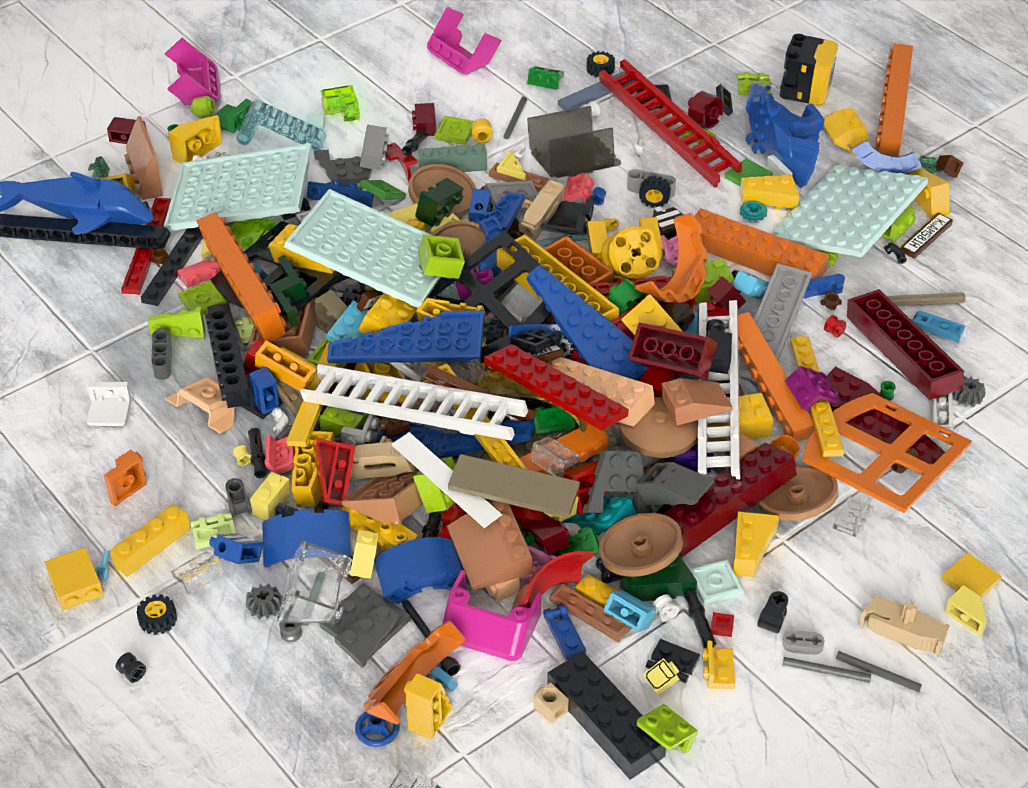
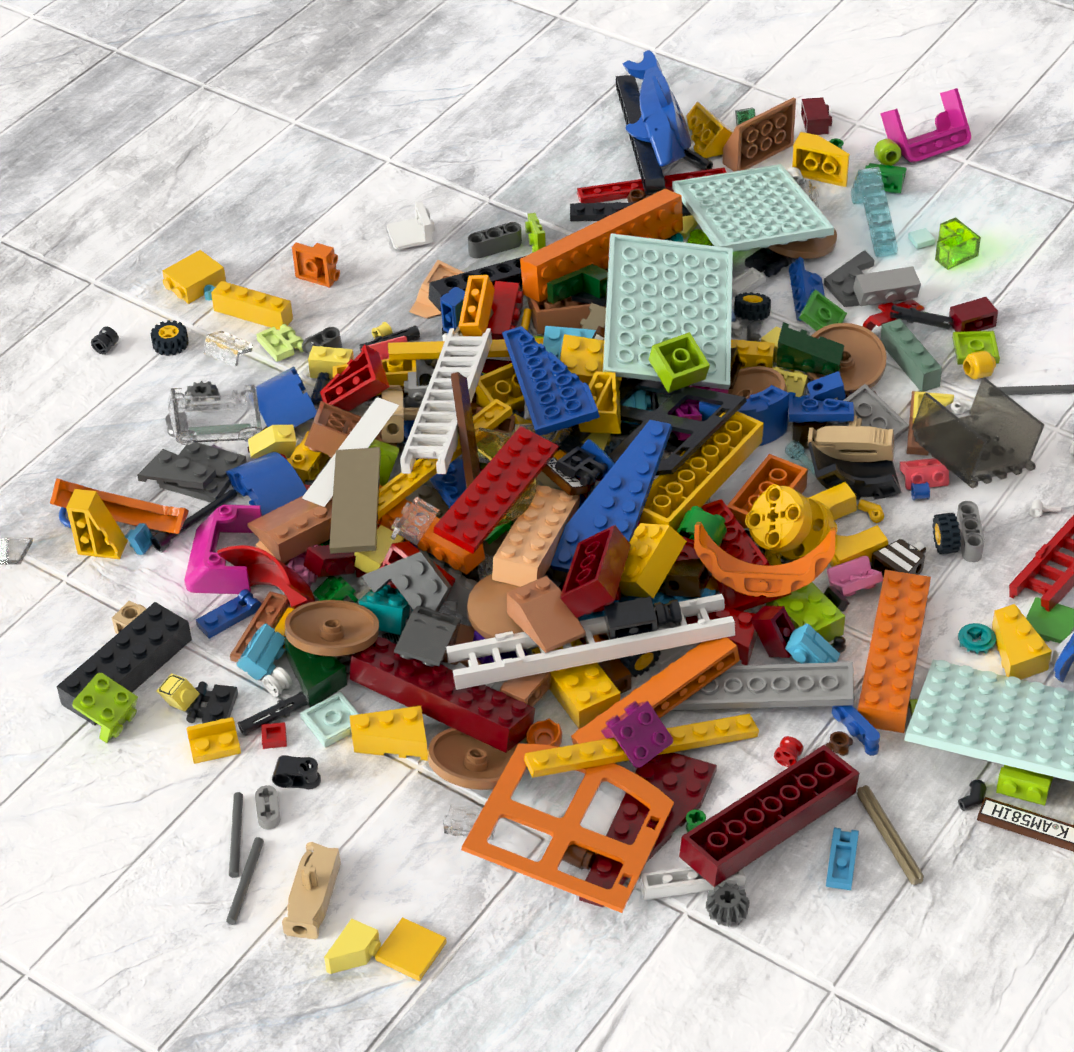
camera: 75 degrees right, 0 degrees up
(236, 548) = (253, 359): blue torso -> none

